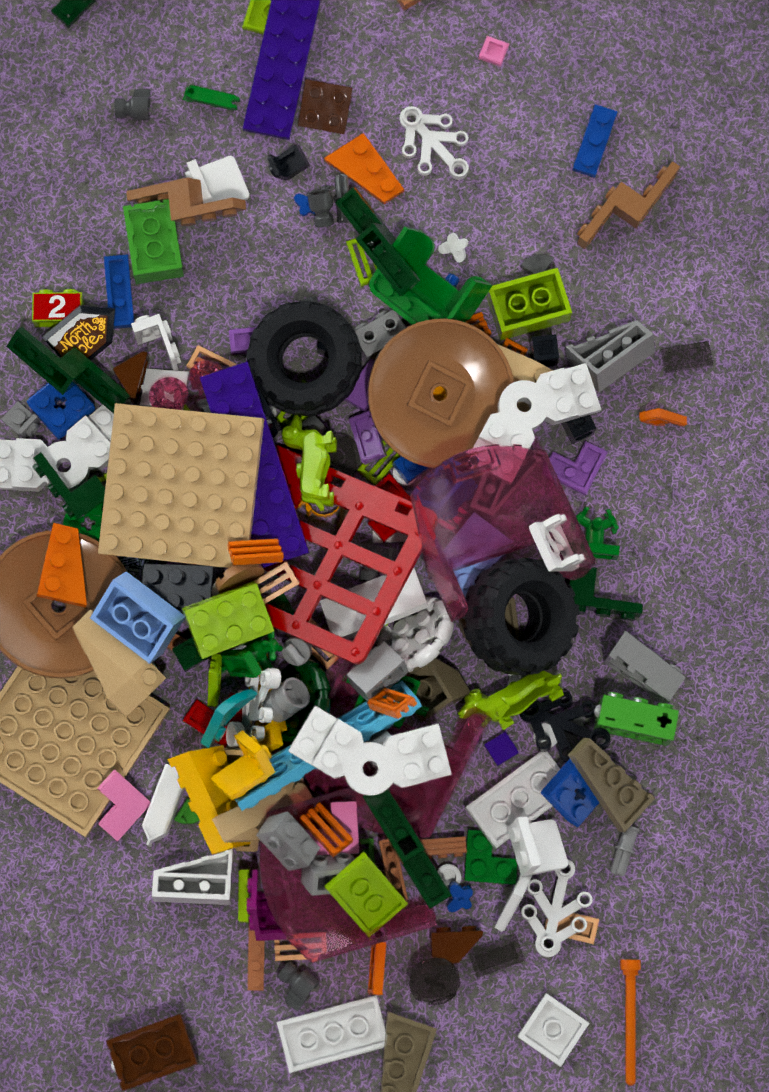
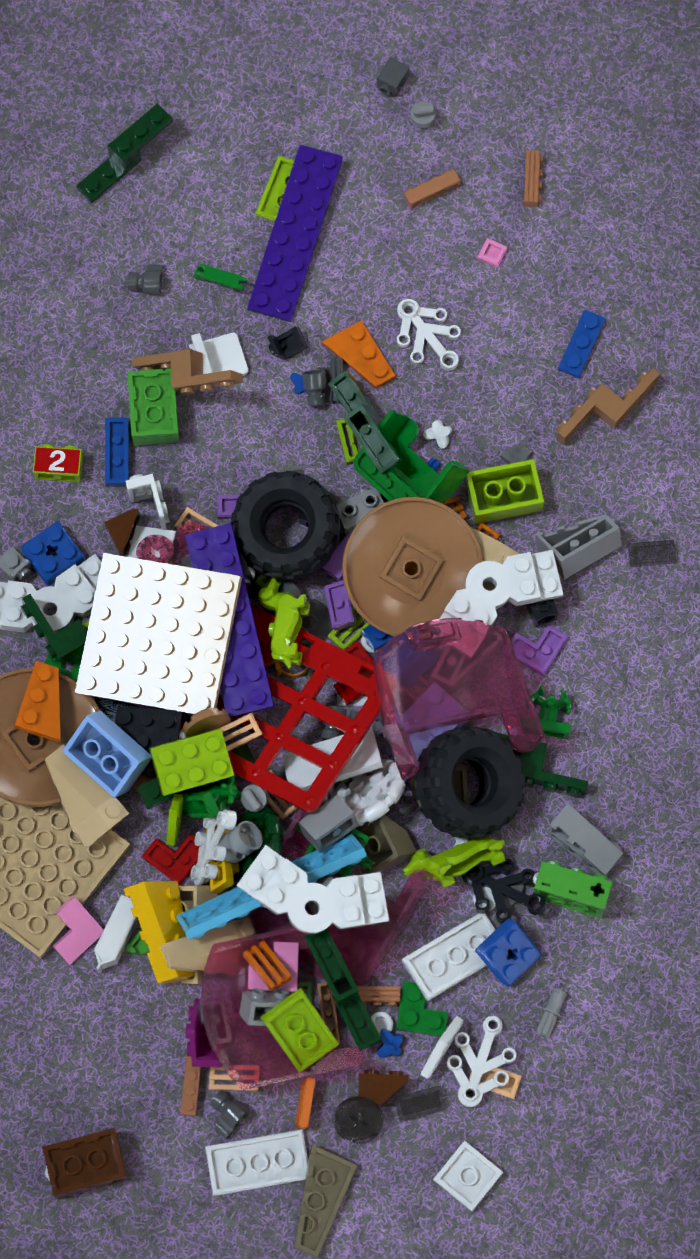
camera: 10 degrees right, 5 degrees down
(68, 370) = (61, 520): dark green bracket -> none
(85, 329) = (78, 489): tile -> none
(197, 881) = (141, 1007): white wedge -> none
(224, 714) = (180, 851): teal plate -> none
(232, 729) = (189, 872): white tile -> none
(243, 894) = (182, 1041): lime tile -> none
(246, 771) = (197, 904): yellow bracket -> none
(255, 551) = (222, 700): orange tile -> none
(288, 841) = (230, 972): light grey brick -> none
(325, 106) = (327, 293): reddish brown hinge -> none
(388, 706) = (340, 851): orange tile -> none
(501, 749) = (441, 908): dark purple tile -> none
(537, 846) = (467, 1000): white bracket -> none
(542, 538) = (503, 731): white piece -> none
(545, 350) = (516, 536): black brick -> none
(613, 788) = (546, 954): dark tan wing -> none
(630, 970) = (547, 1125): orange piece -> none
(660, 417) = (622, 607): orange tile -> none

